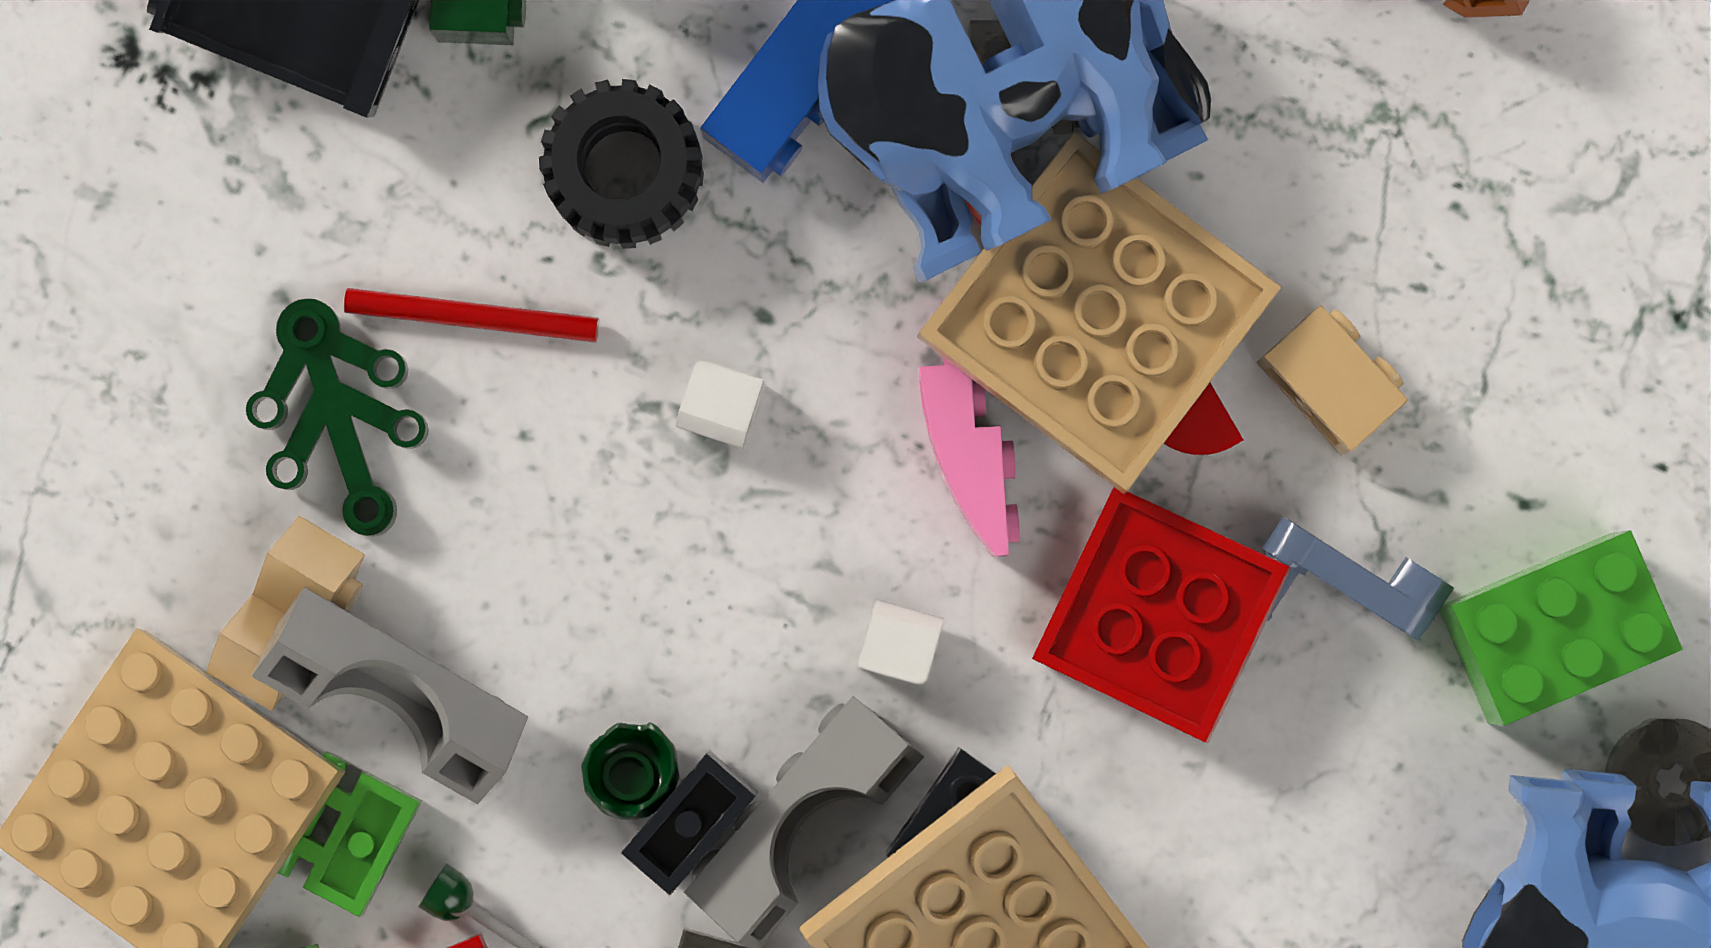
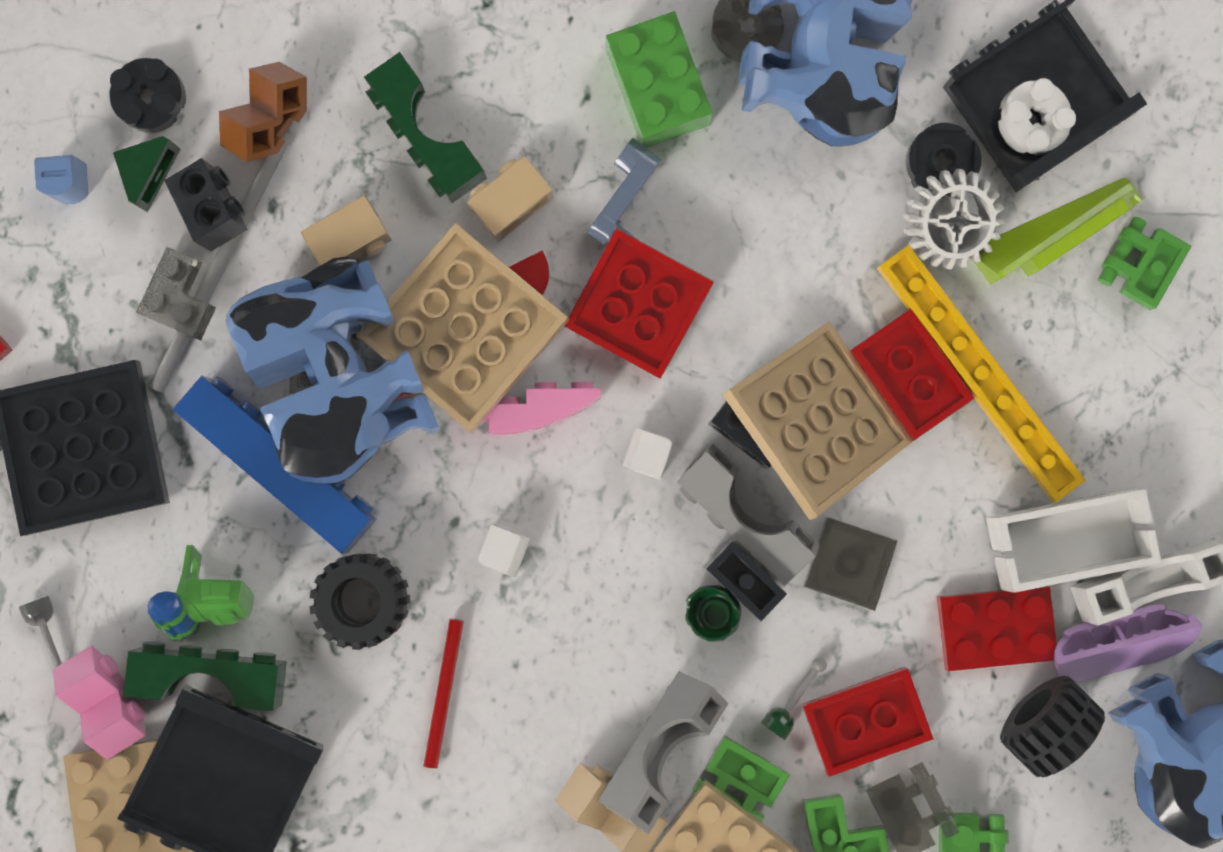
camera: 90 degrees left, 0 degrees up
(332, 407) = (492, 777): dark green plant -> none
(1253, 103) = (348, 233): none -> tan brick
(1508, 176) = (400, 92): none -> dark green arch

